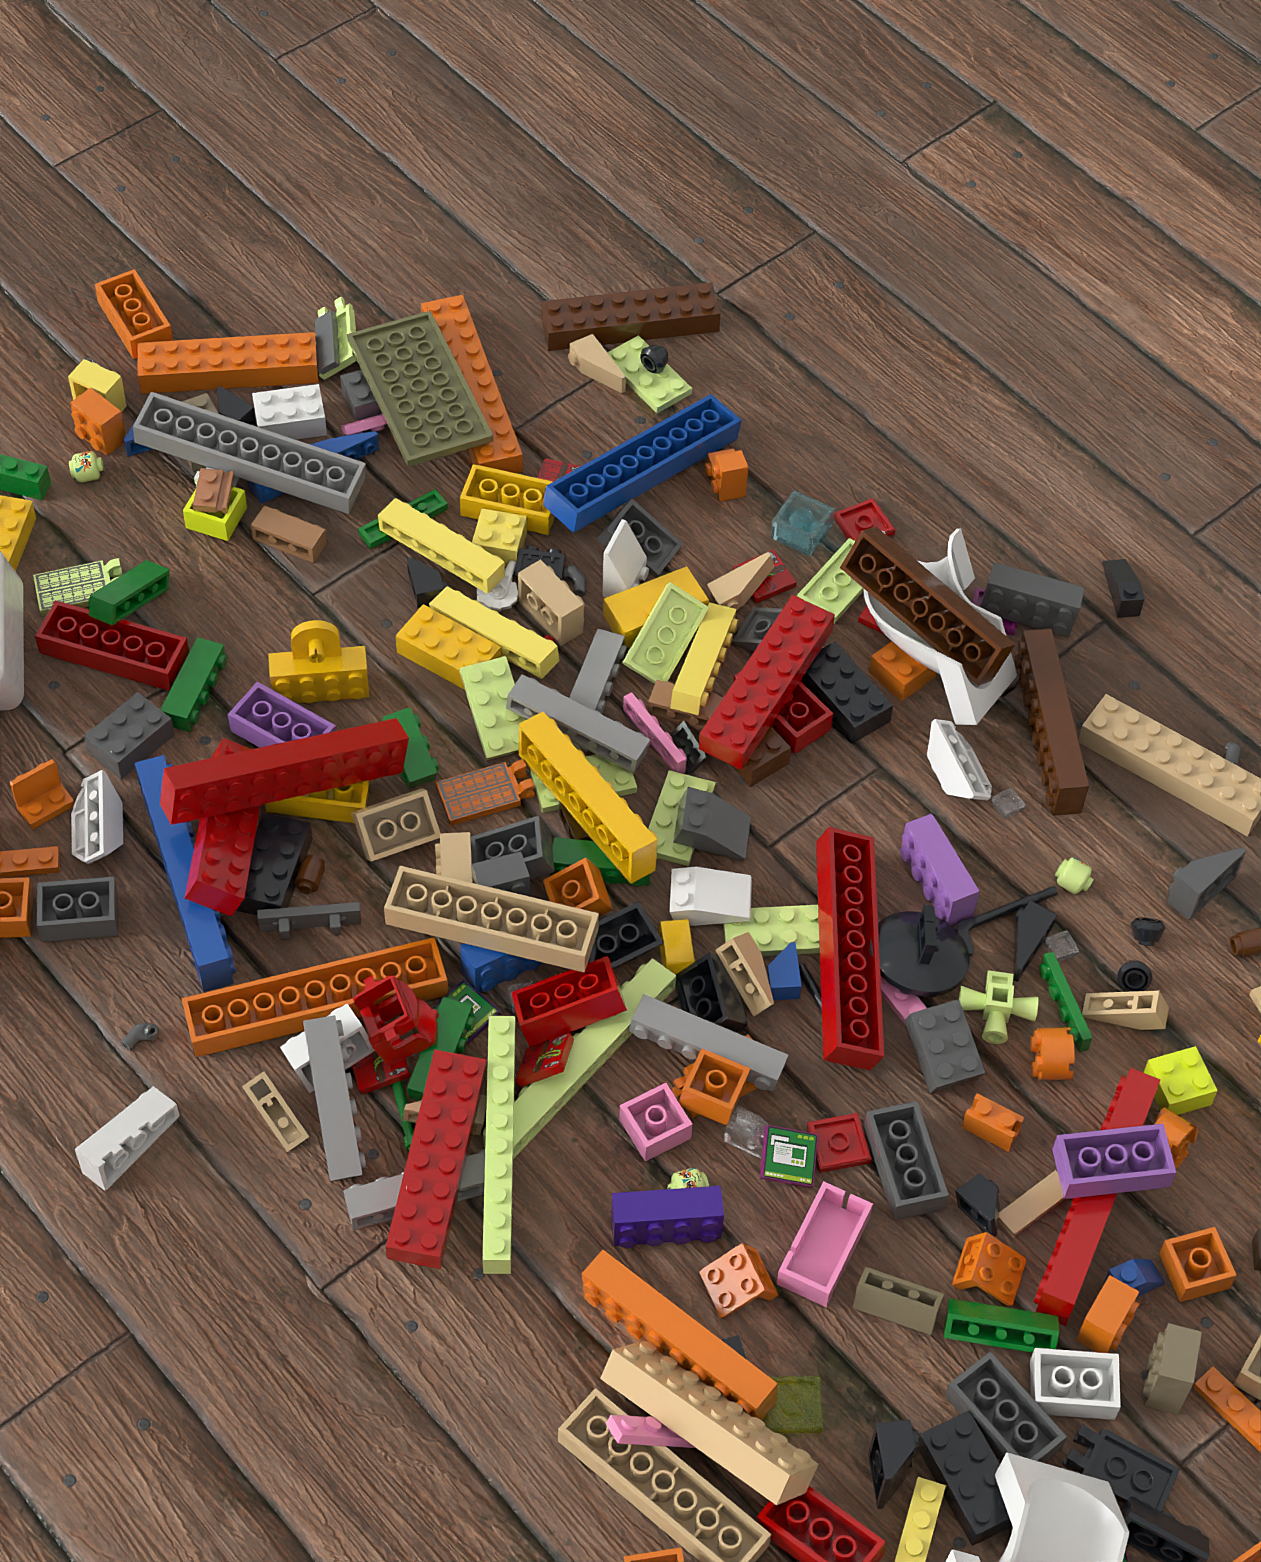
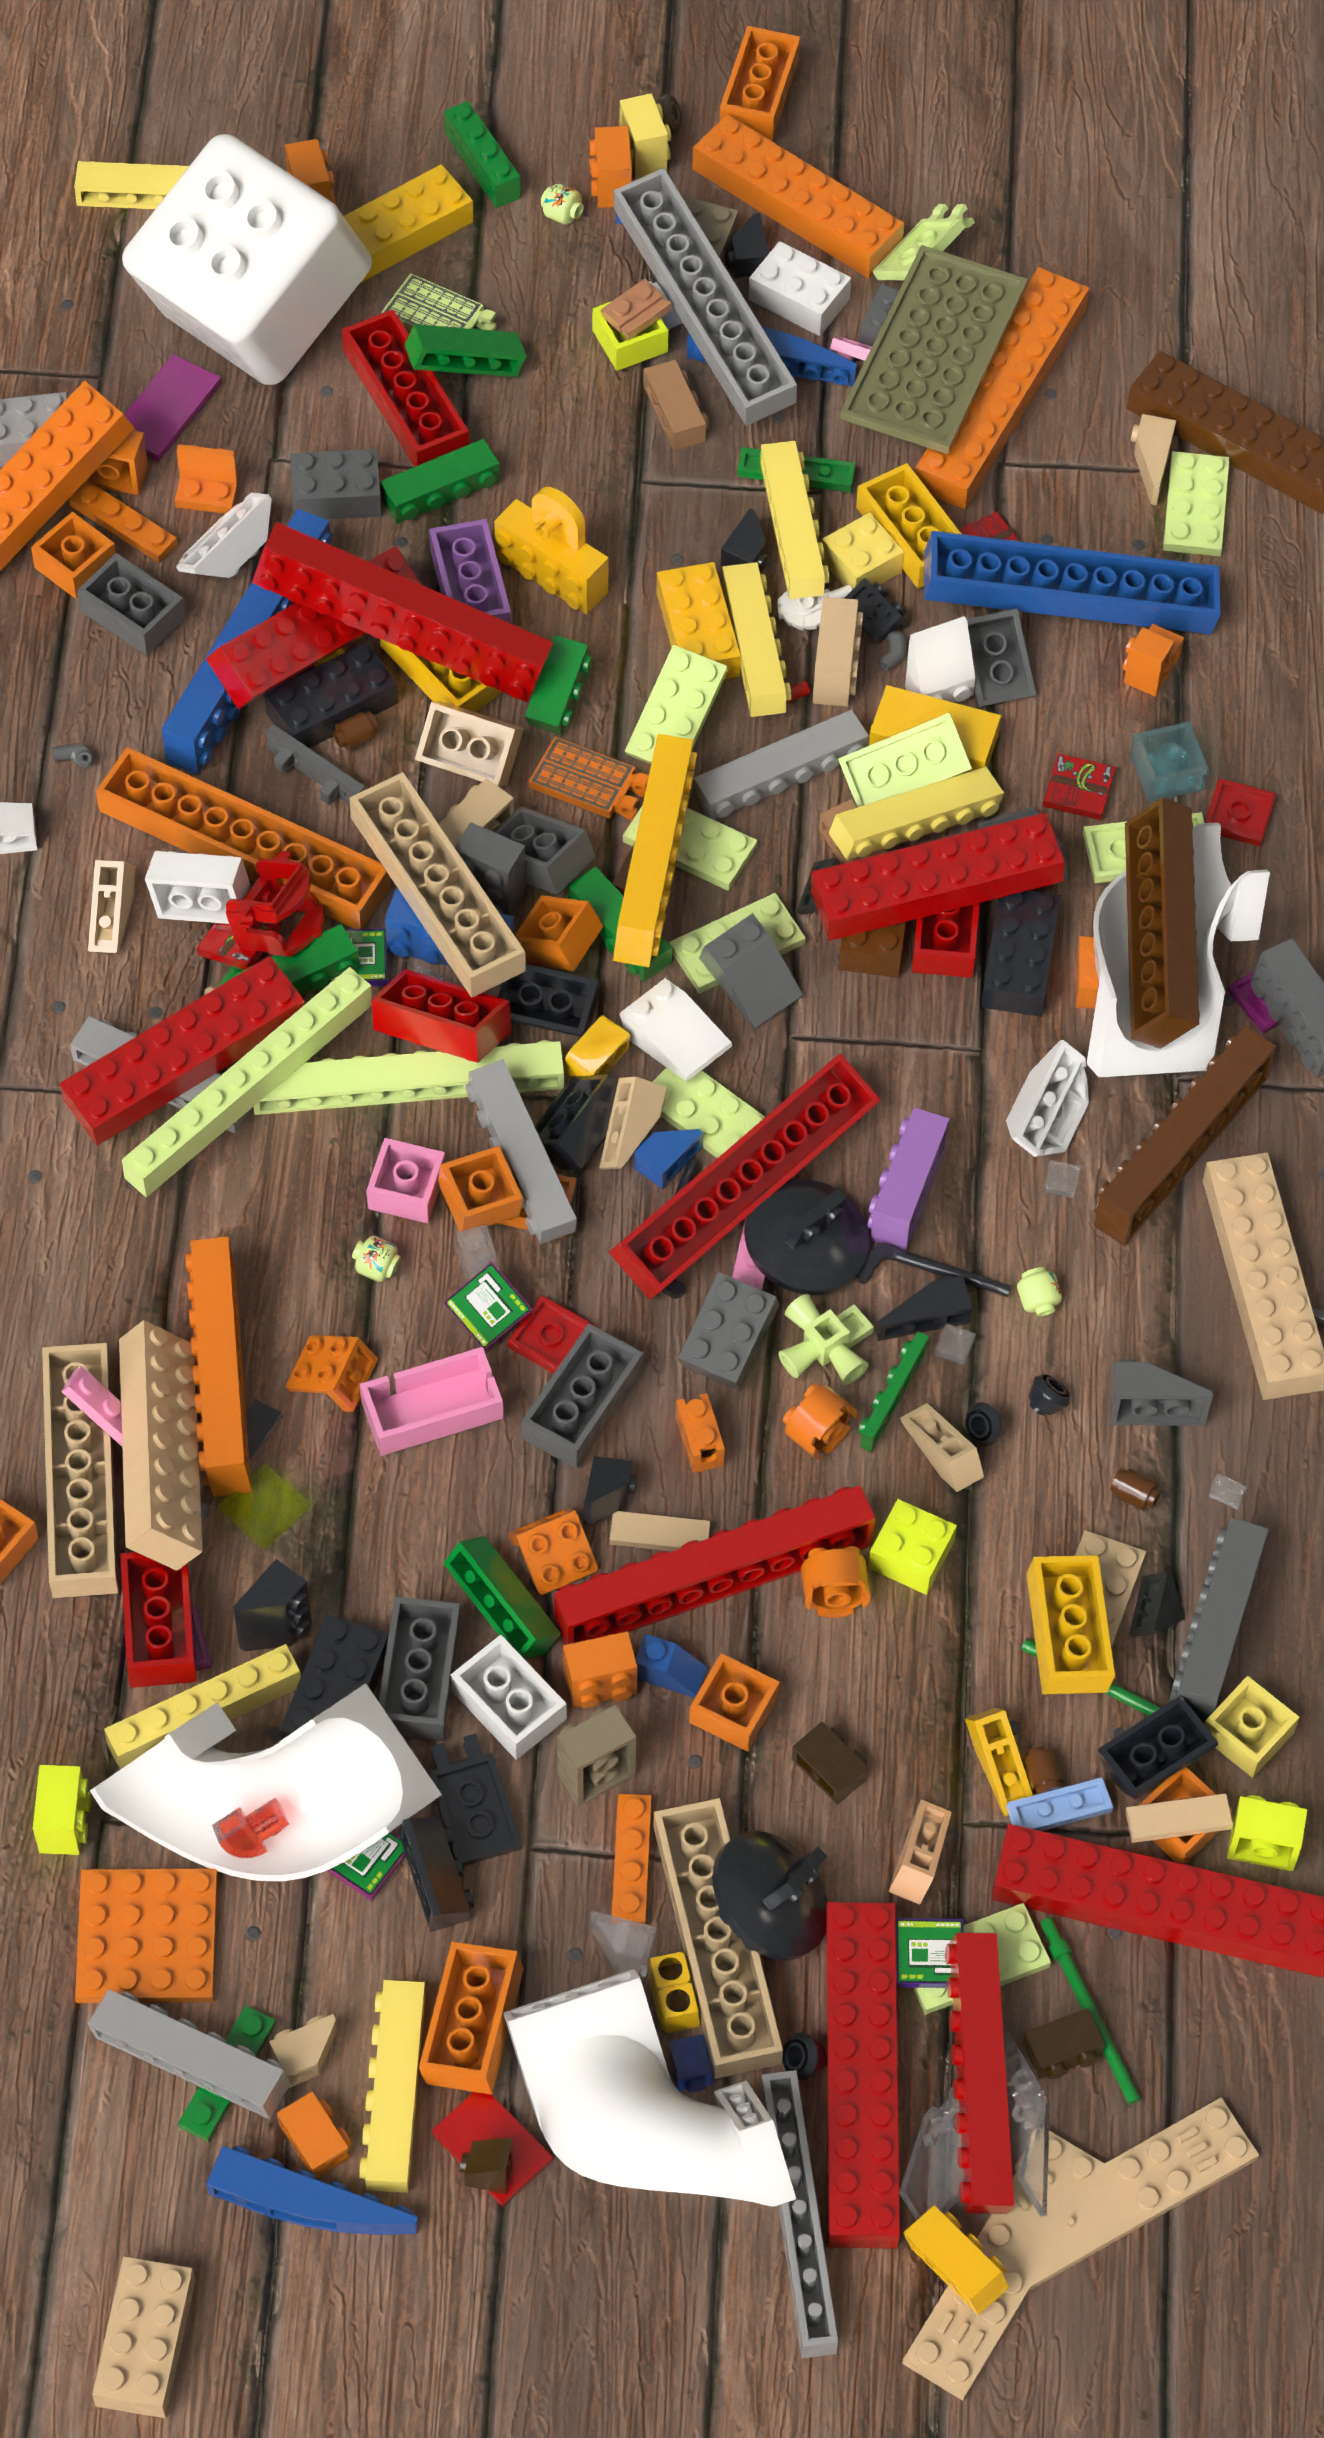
camera: 45 degrees right, 5 degrees up
(327, 342) = (907, 241): dark grey tile -> none
(332, 1097) = (152, 928): light grey brick -> none
(544, 1060) = (369, 1049): red tile -> none
(582, 725) = (726, 780): light grey brick -> none
(650, 727) = (798, 859): bright pink plate -> none
(654, 358) = (1208, 490): black cone -> none
(667, 1216) = (324, 1263): dark purple brick -> none
(739, 585) = (1036, 773): tan slope -> none
(898, 1300) = (438, 1499): dark tan brick -> none
(1114, 1161) = (734, 1539): medium lavender brick -> none

